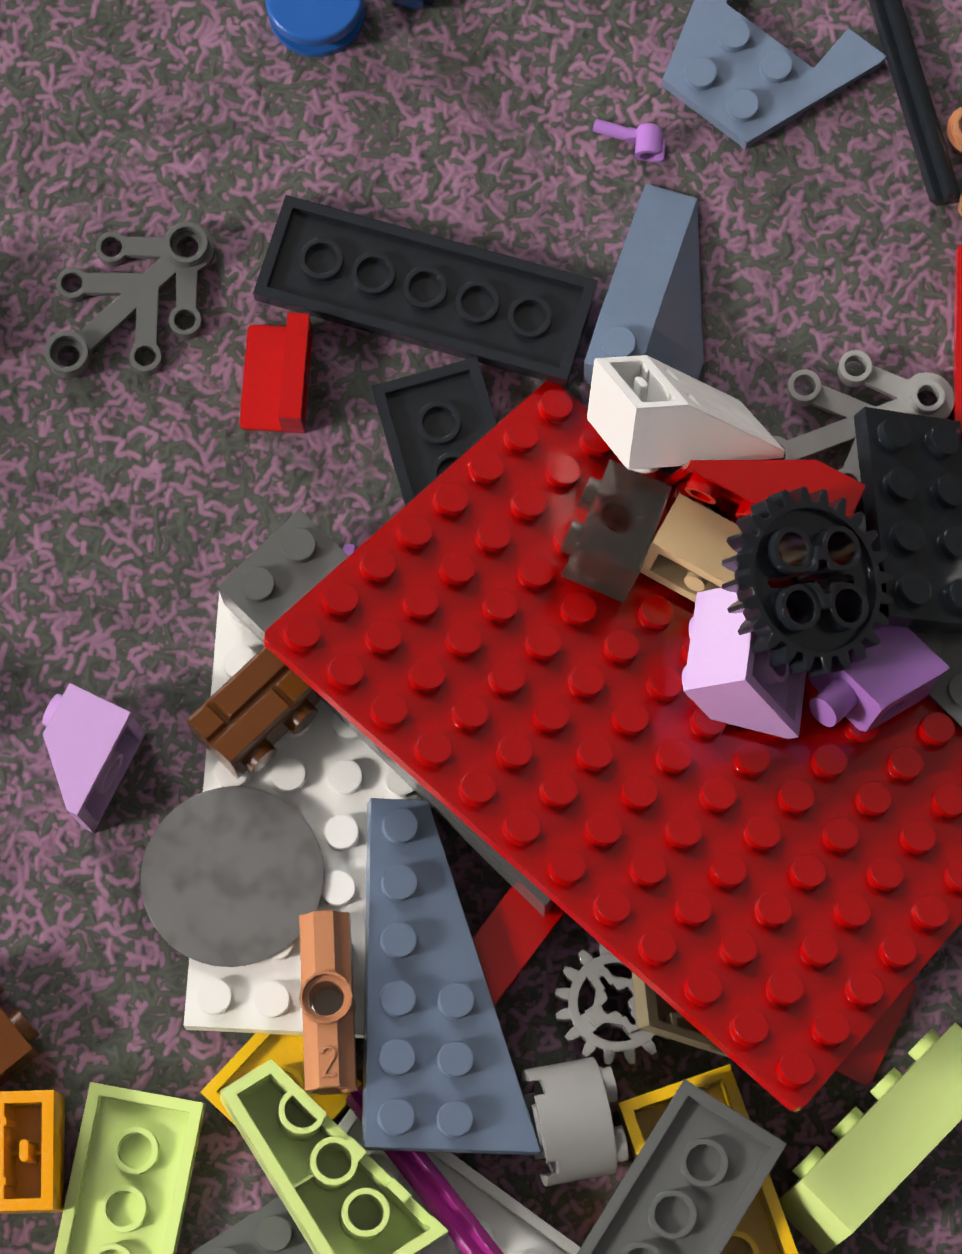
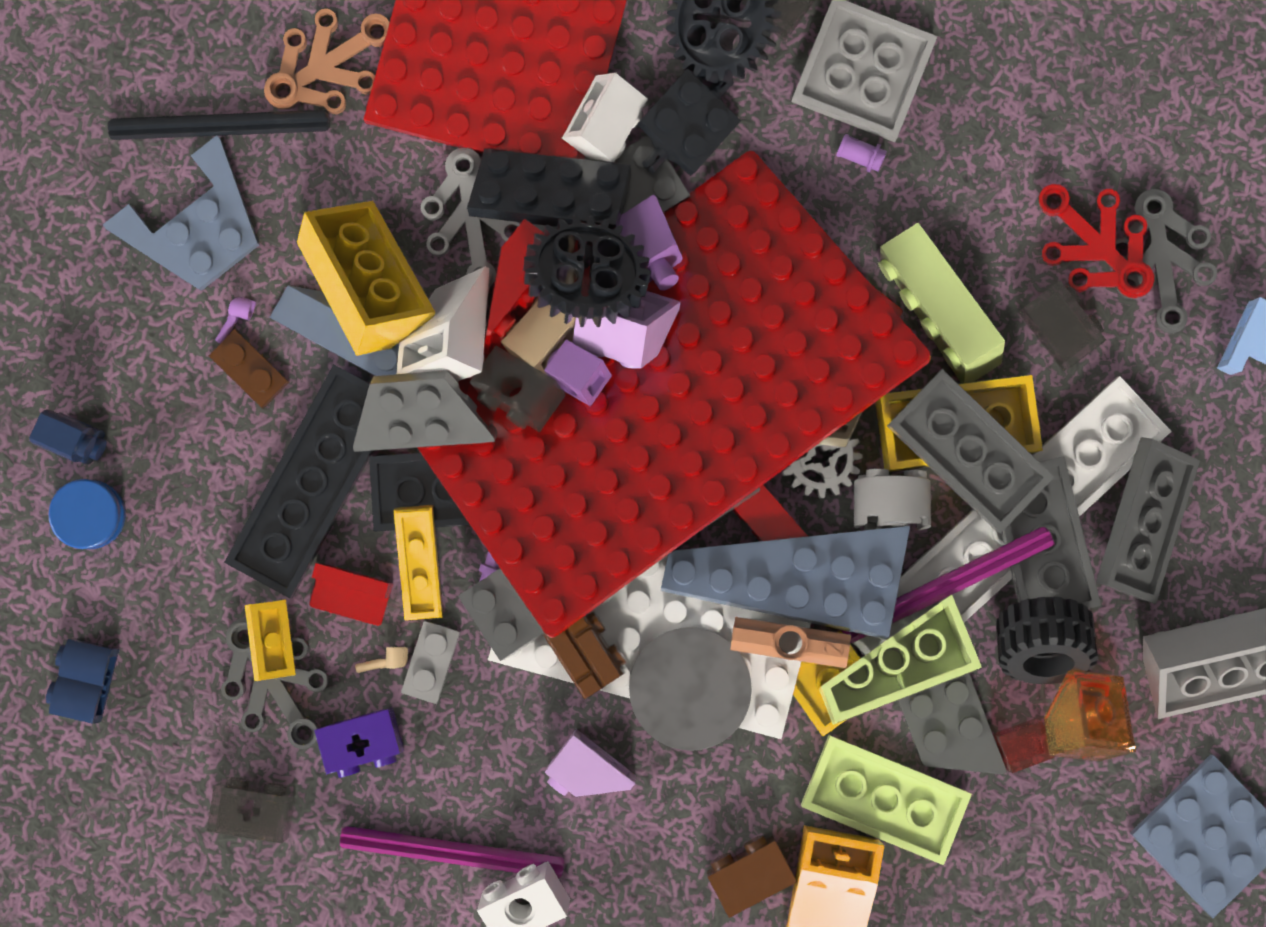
camera: 75 degrees left, 10 degrees up
(63, 401) = (337, 738): none -> dark purple brick
(85, 47) = (82, 680): none -> dark blue brick
(188, 277) = (270, 640): none -> yellow plate
(198, 457) = (395, 658): none -> tan hand
(201, 507) = (430, 662): none -> light grey plate
(340, 457) = (418, 562): none -> yellow tile
(550, 402) = (419, 412): none -> wing
(565, 172) = (249, 369): none -> reddish brown plate
(658, 608) = (578, 372): none -> medium lavender brick
(732, 288) = (363, 275): none -> yellow slope

